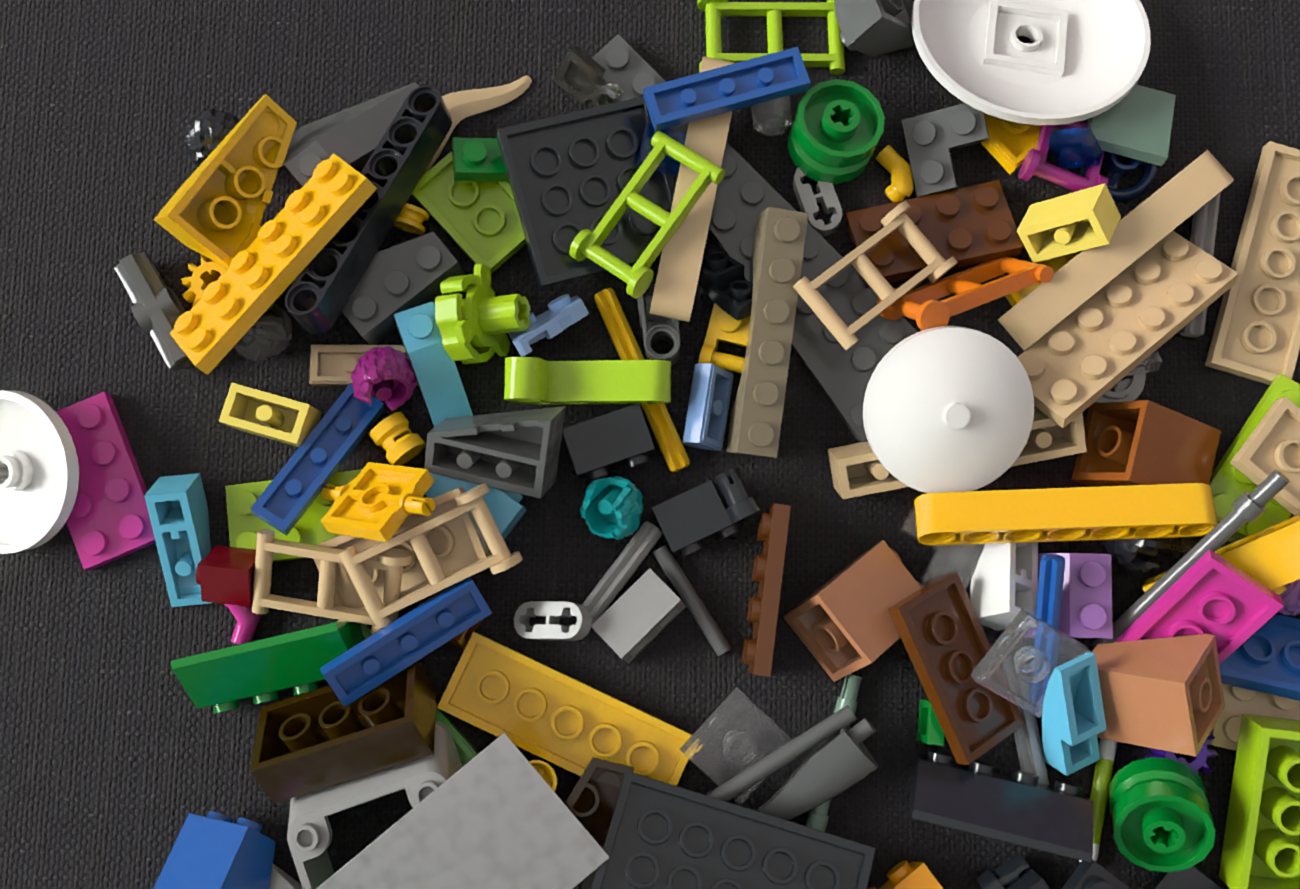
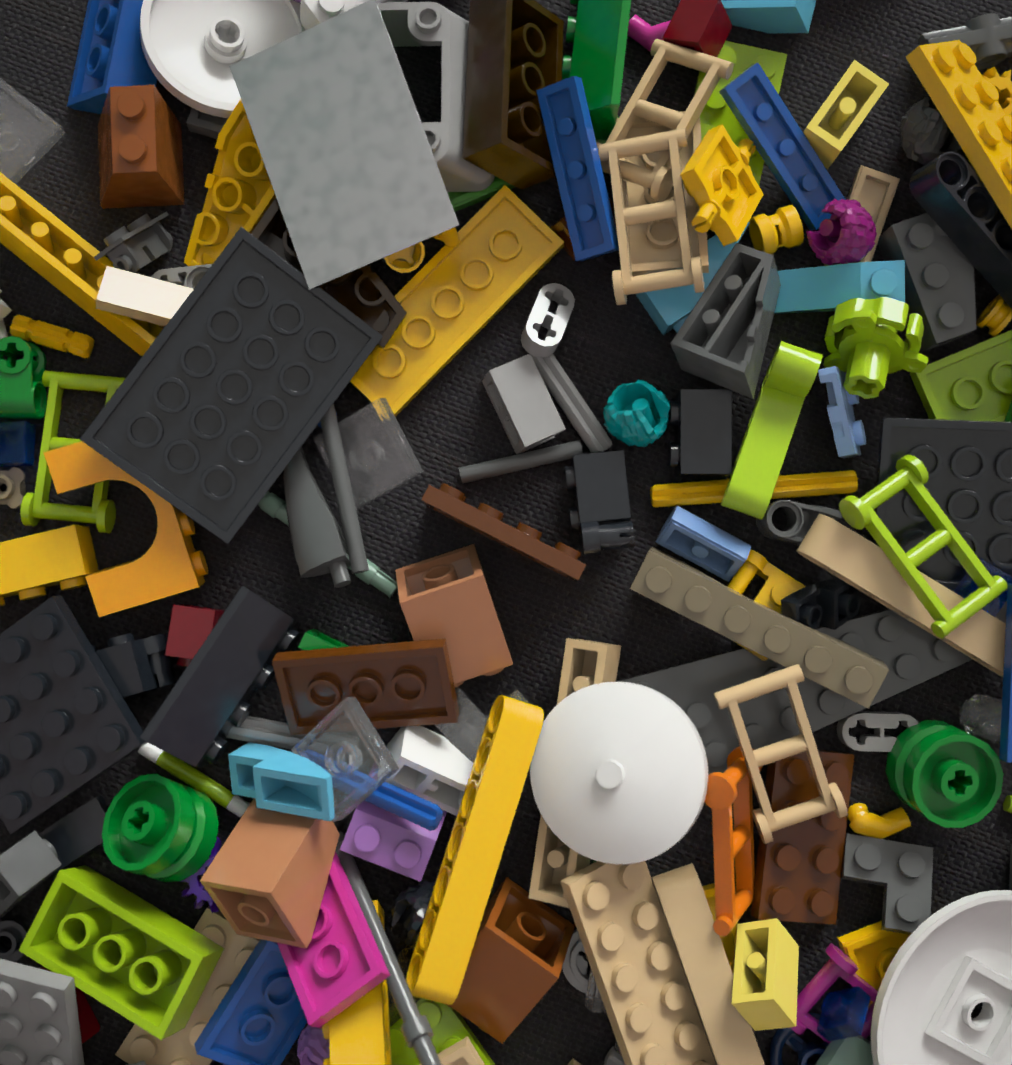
camera: 105 degrees right, 5 degrees up
(965, 854) = (189, 630): none -> dark red brick

